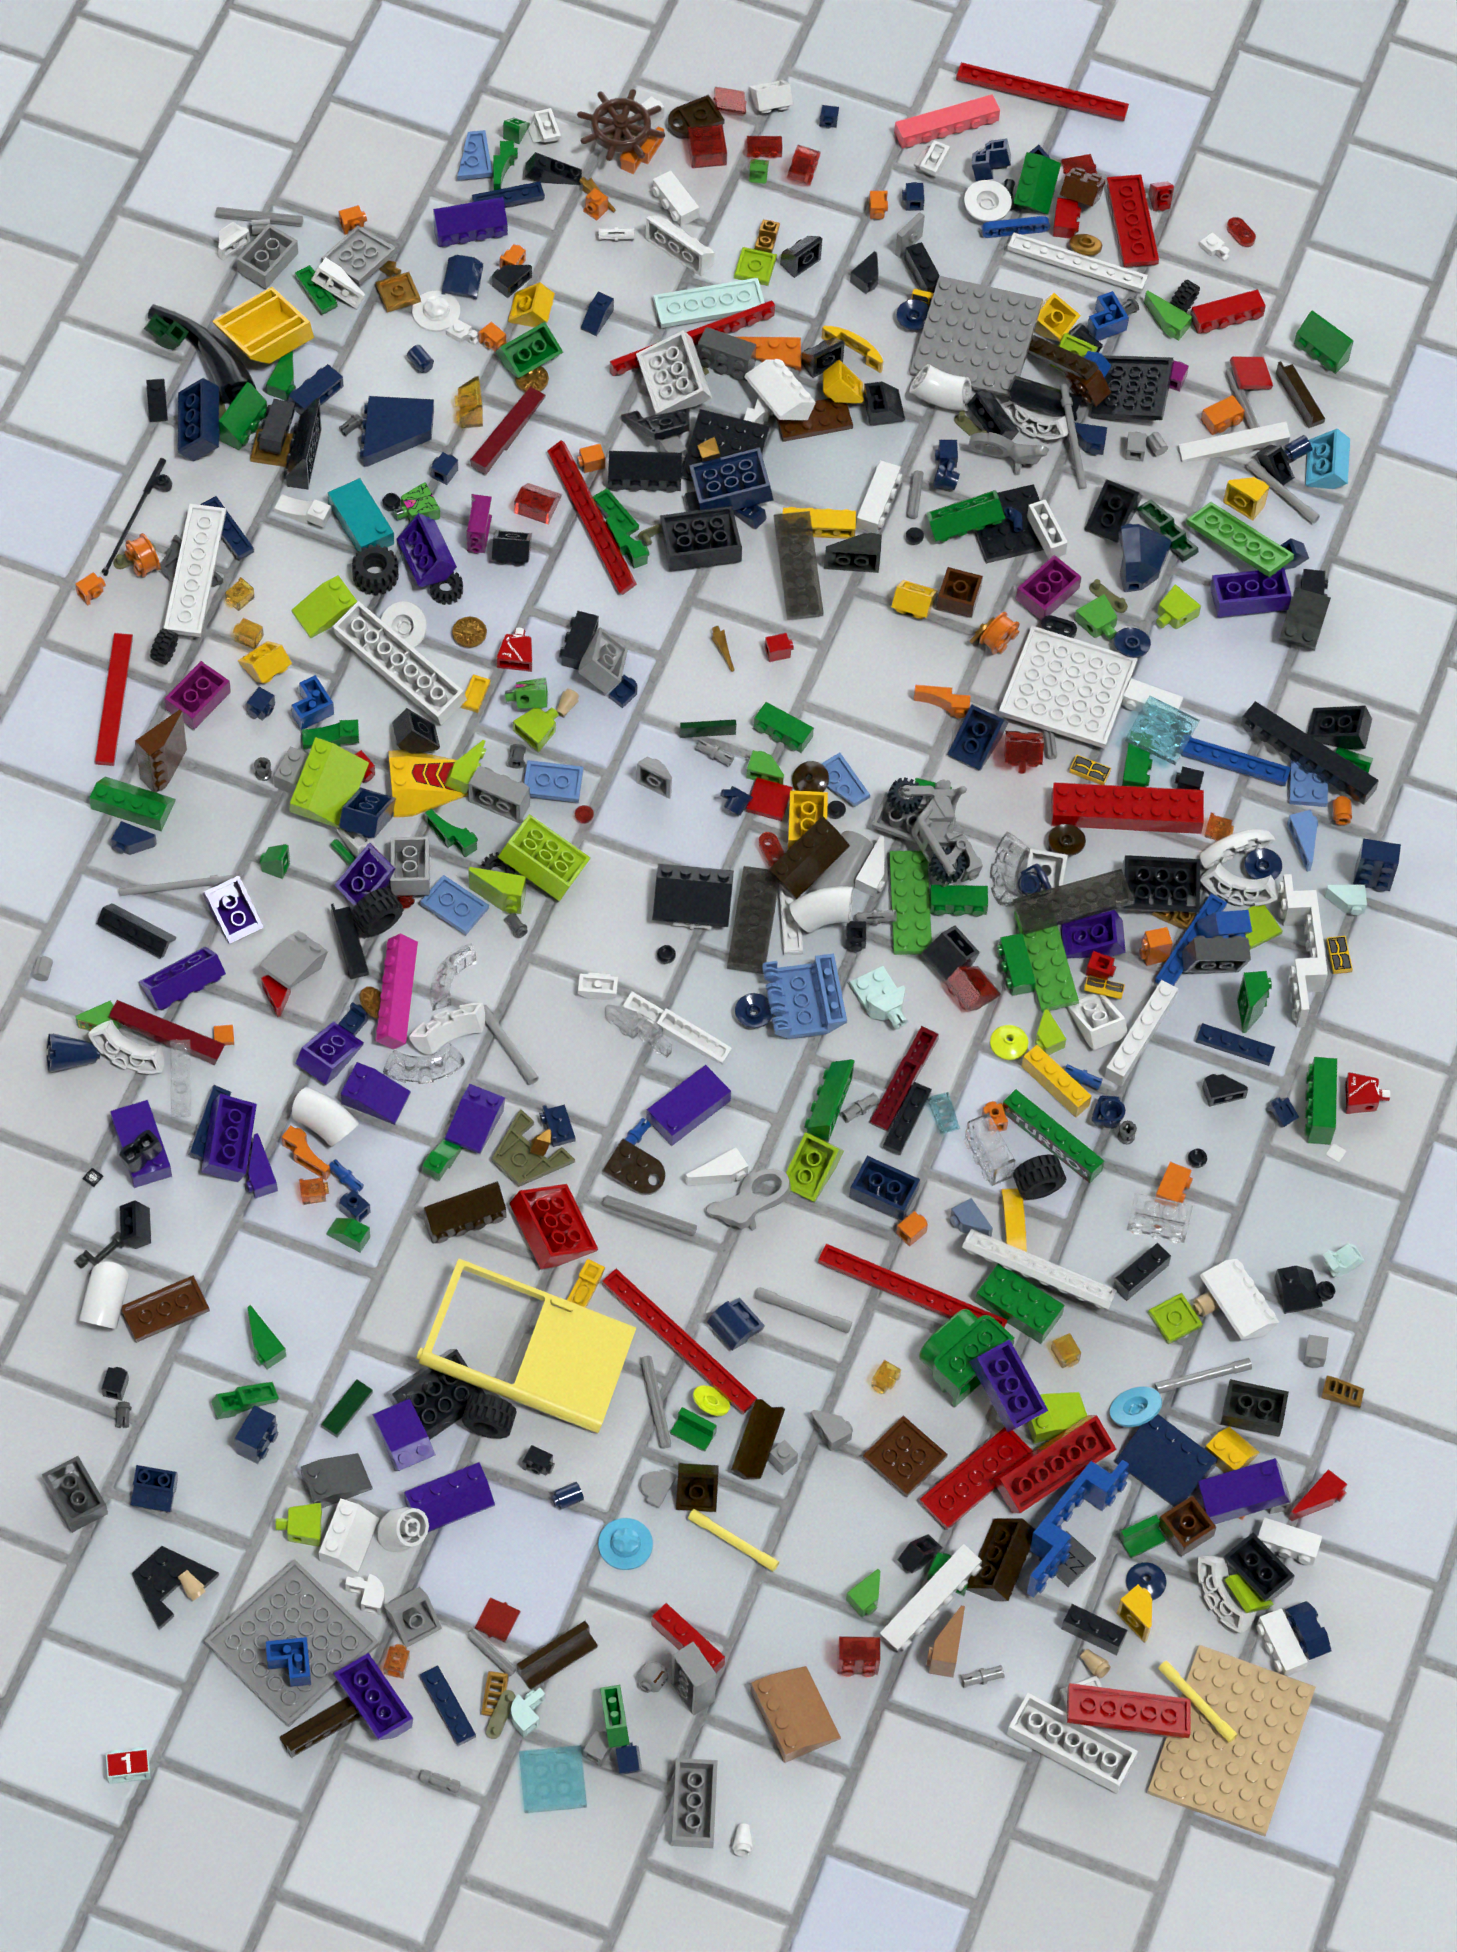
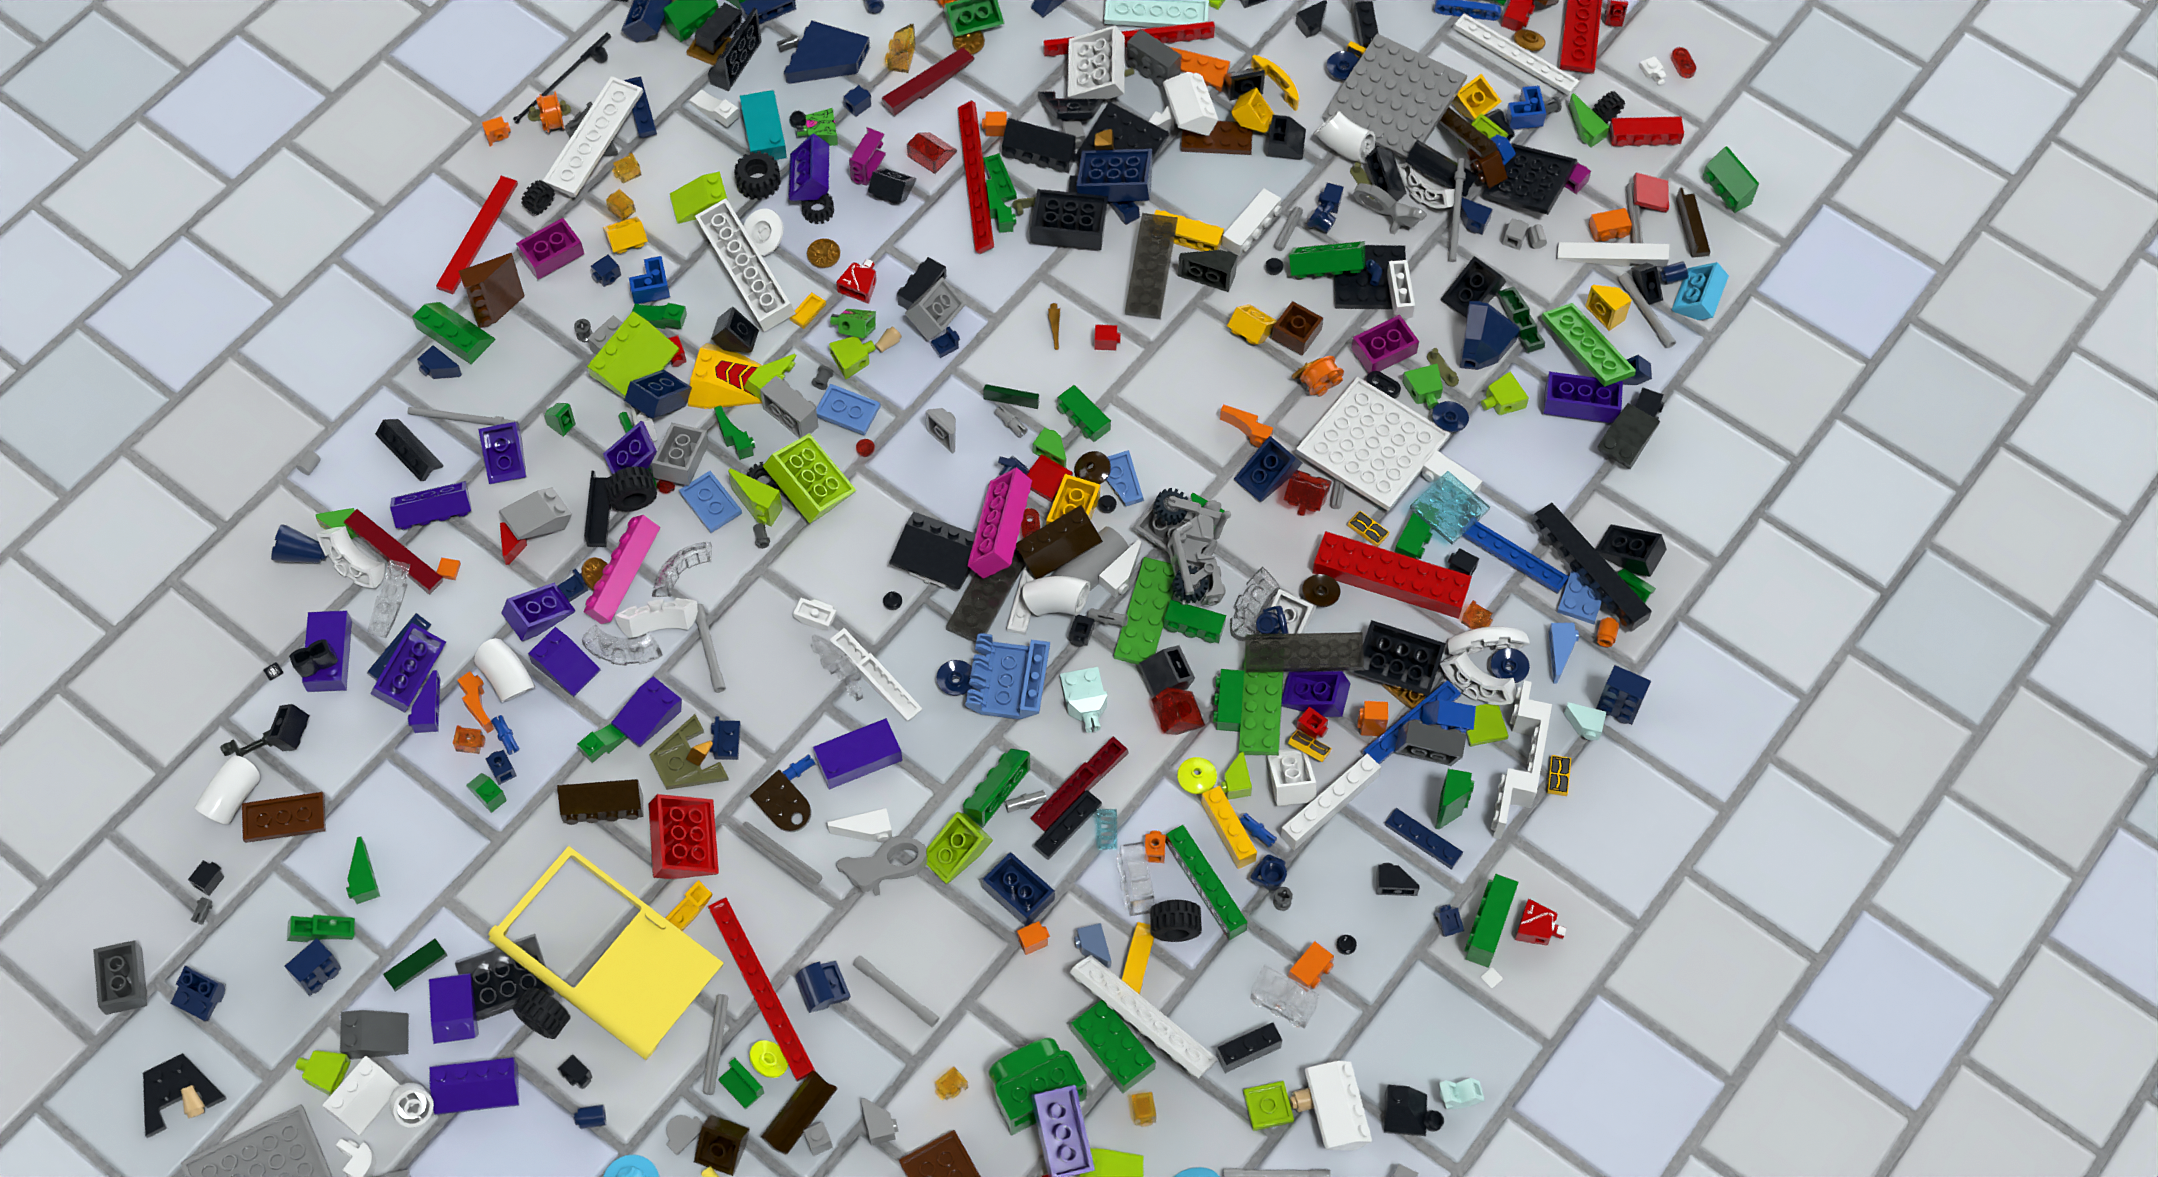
camera: 20 degrees right, 0 degrees up
(747, 853) = (1000, 523): none -> dark pink brick
(898, 1284) = (1005, 997): red plate -> none

